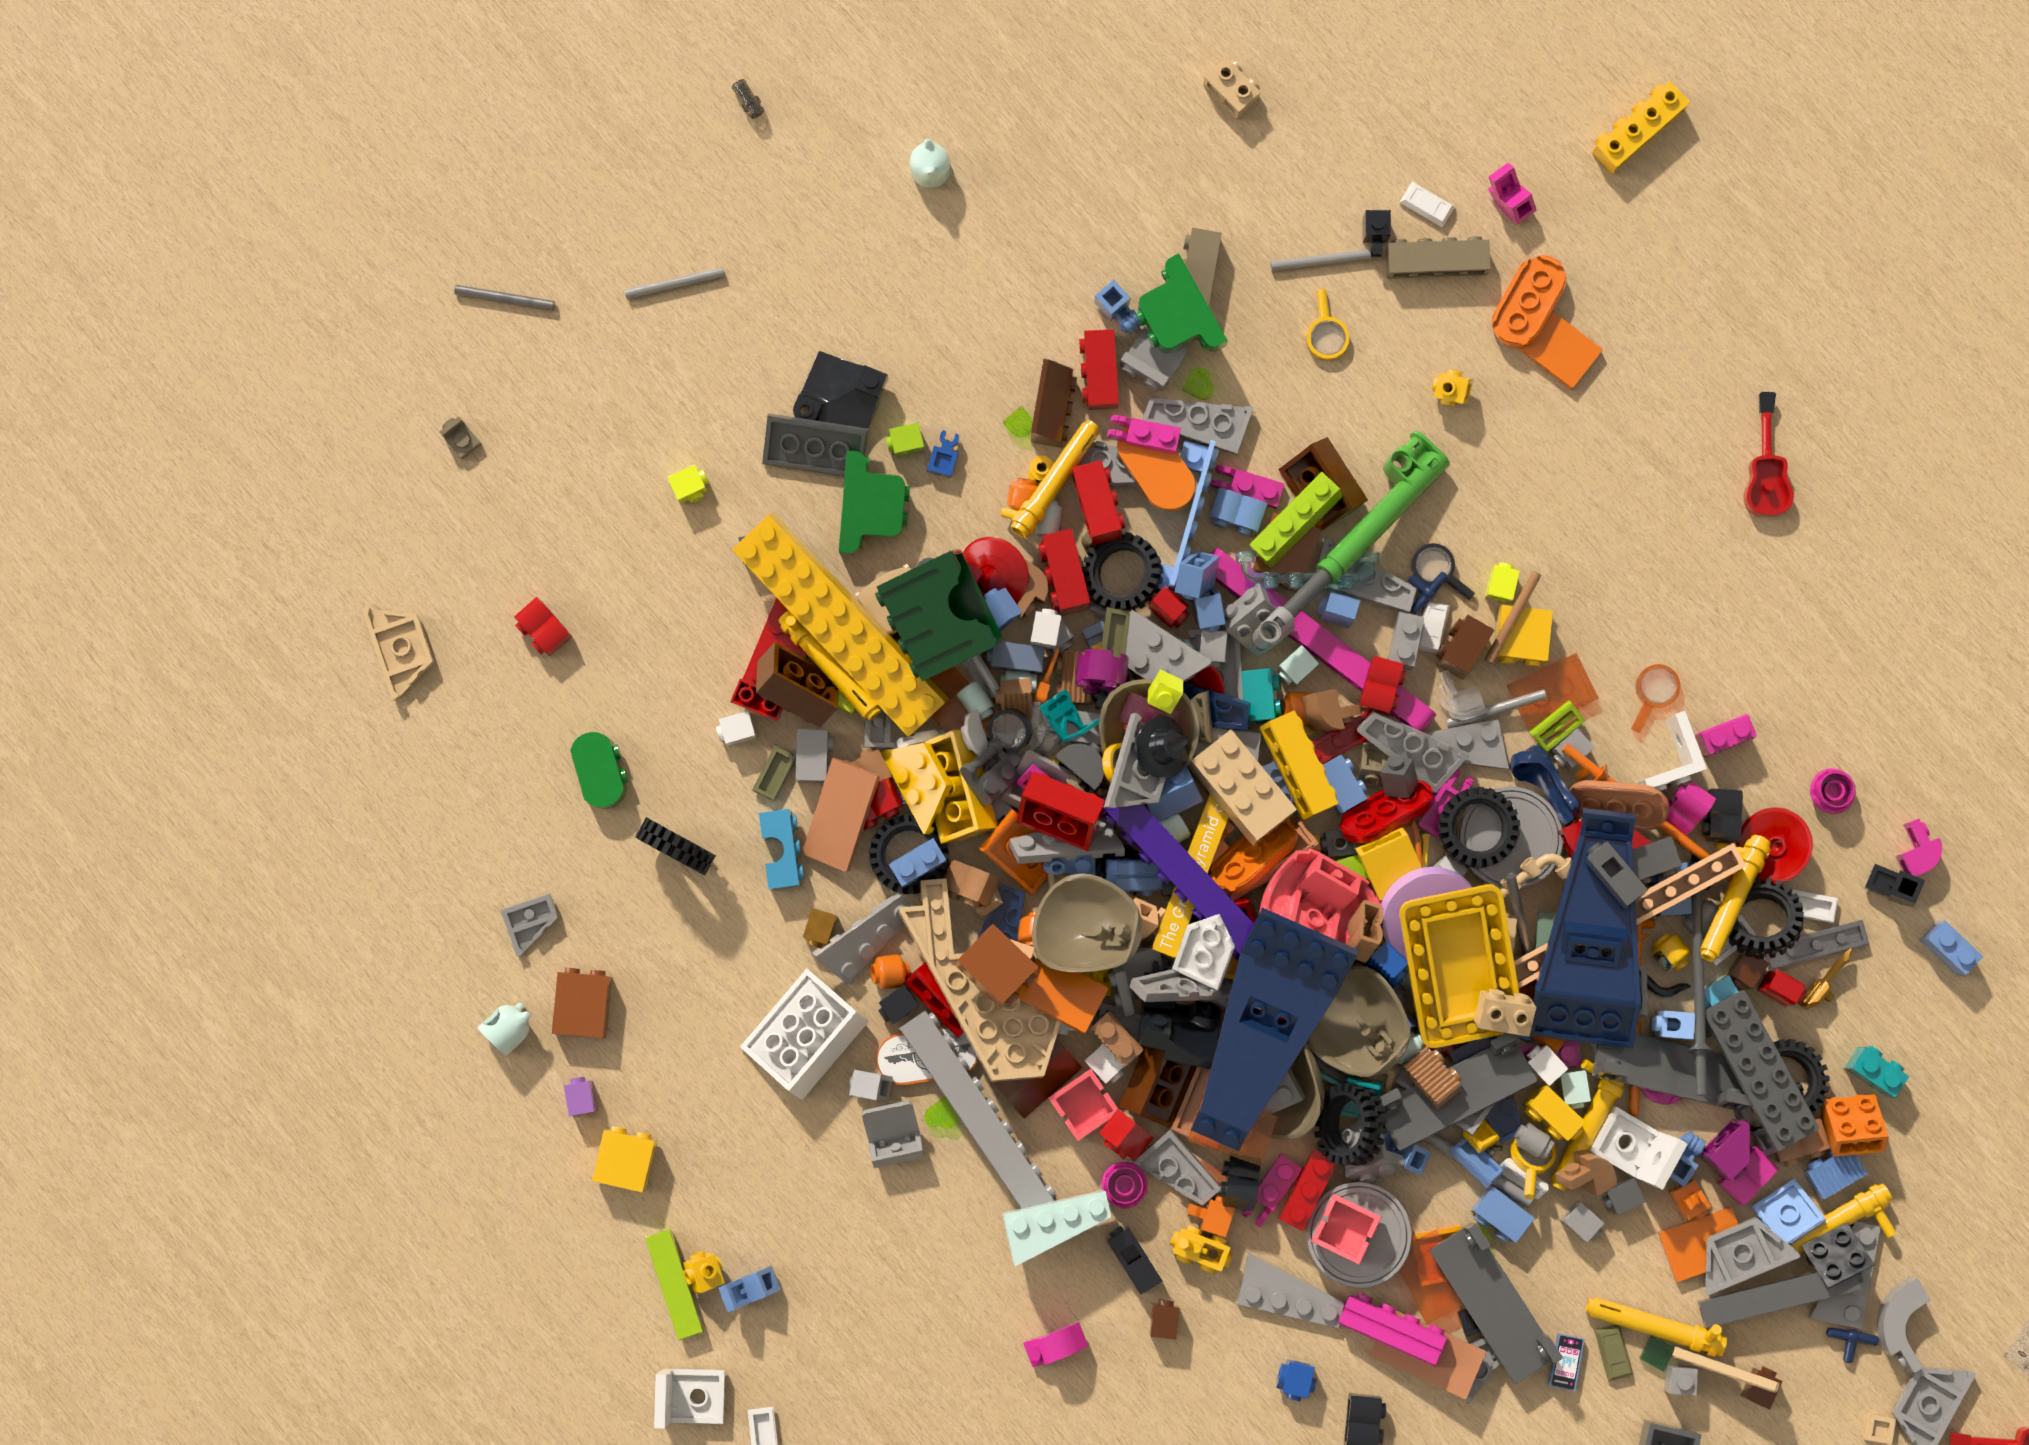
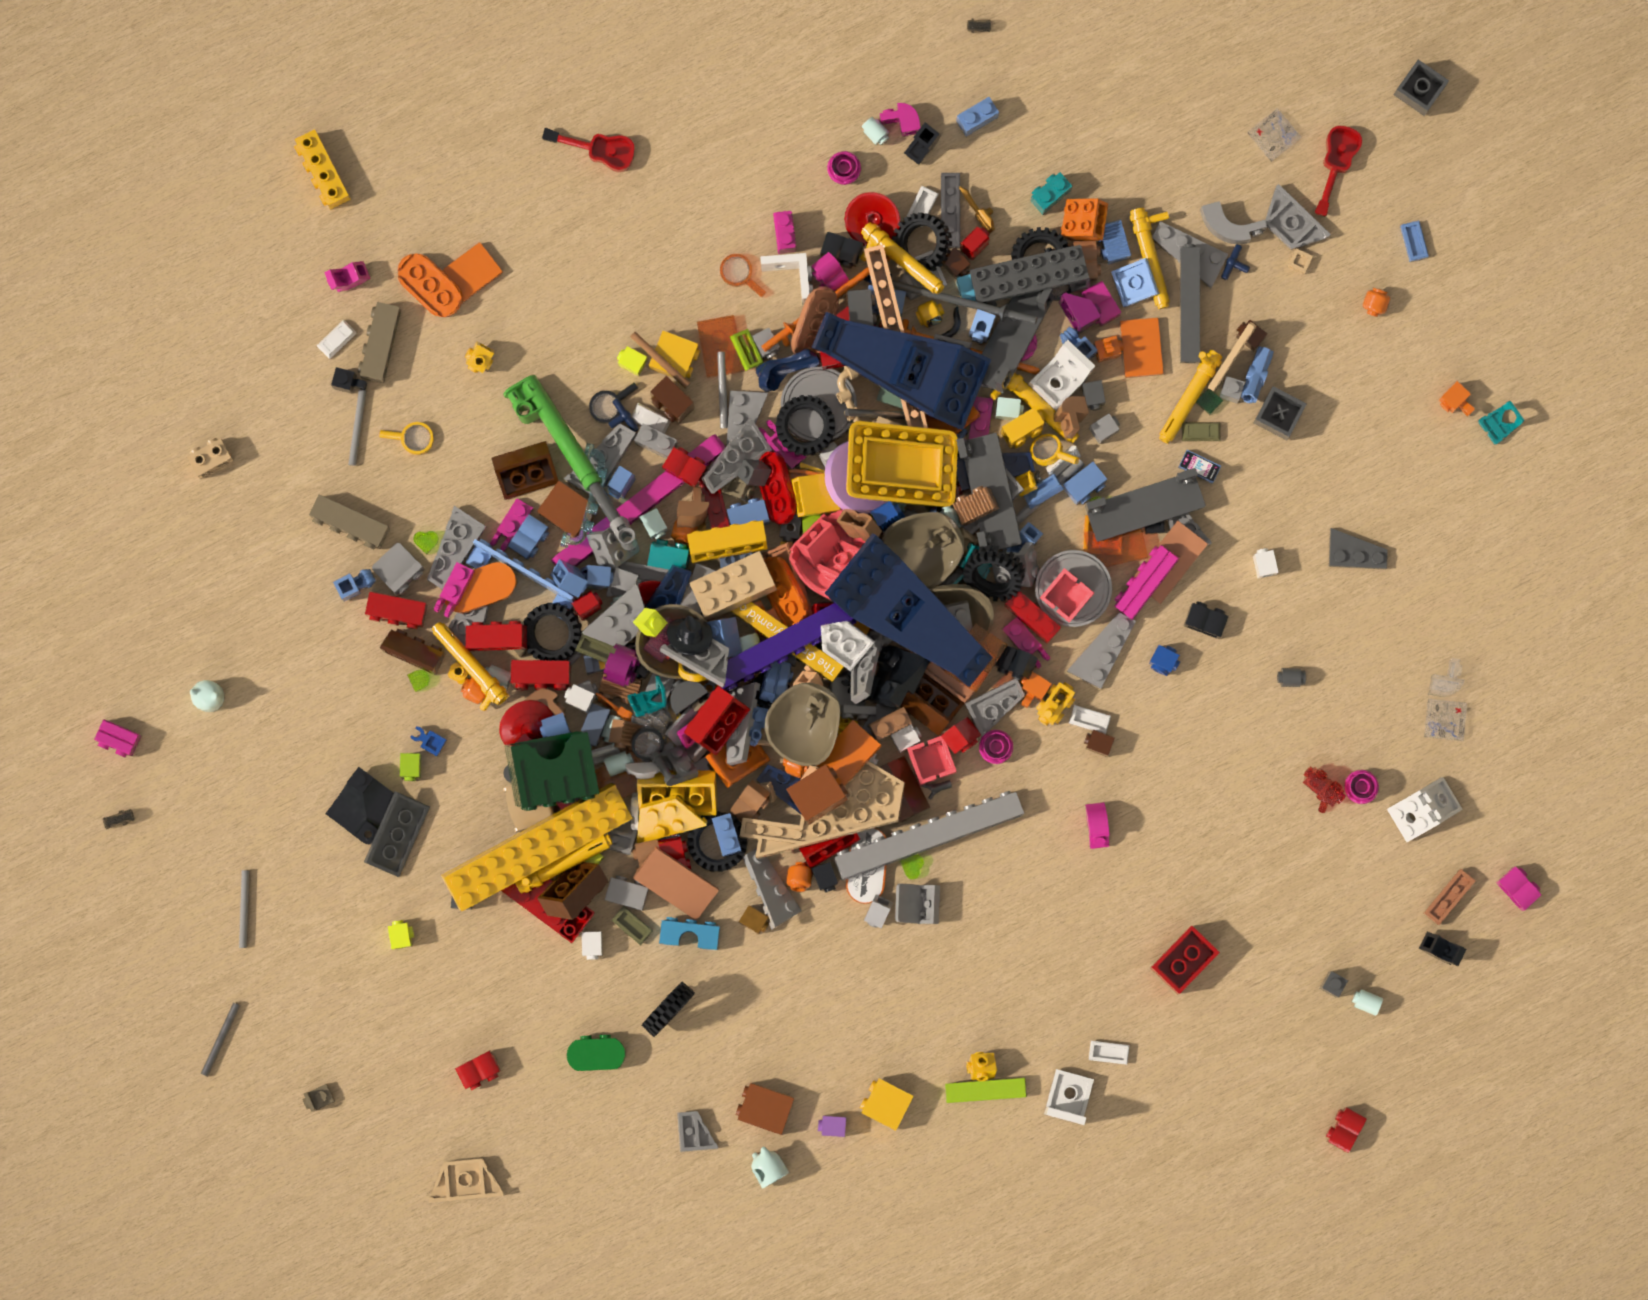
camera: 80 degrees left, 0 degrees up
(749, 1288) = (1002, 1035): medium blue brick -> none
(804, 1034) = (828, 951): white slope -> none
(848, 69) = (117, 738): none -> dark pink brick
(870, 503) = (451, 804): green brick -> none
(1051, 1120) = (935, 788): none -> dark grey bar
(1051, 1223) = (1011, 809): light aqua wedge -> none
(1133, 1259) = (1050, 753): black brick -> none
(1178, 312) = (371, 540): green brick -> none
(1192, 1299) = (1089, 719): none -> white tile
(1202, 705) = (665, 599): dark tan tile -> none
(1296, 520) = (548, 496): lime brick -> none
(1461, 705) = (714, 414): clear brick -> none
(1505, 1012) = (942, 442): tan brick -> none
(1533, 1140) = (1038, 447): light grey brick -> none
(1545, 1064) = (986, 424): white brick -> none
(1615, 874) = (864, 338): dark grey brick -> none
(1710, 1408) = (1256, 374): none -> medium blue piece
(1744, 1253) = (1154, 321): light grey wing -> none
(1837, 1255) = (1172, 257): hinge -> none
(1893, 820) = (875, 131): none -> light aqua brick

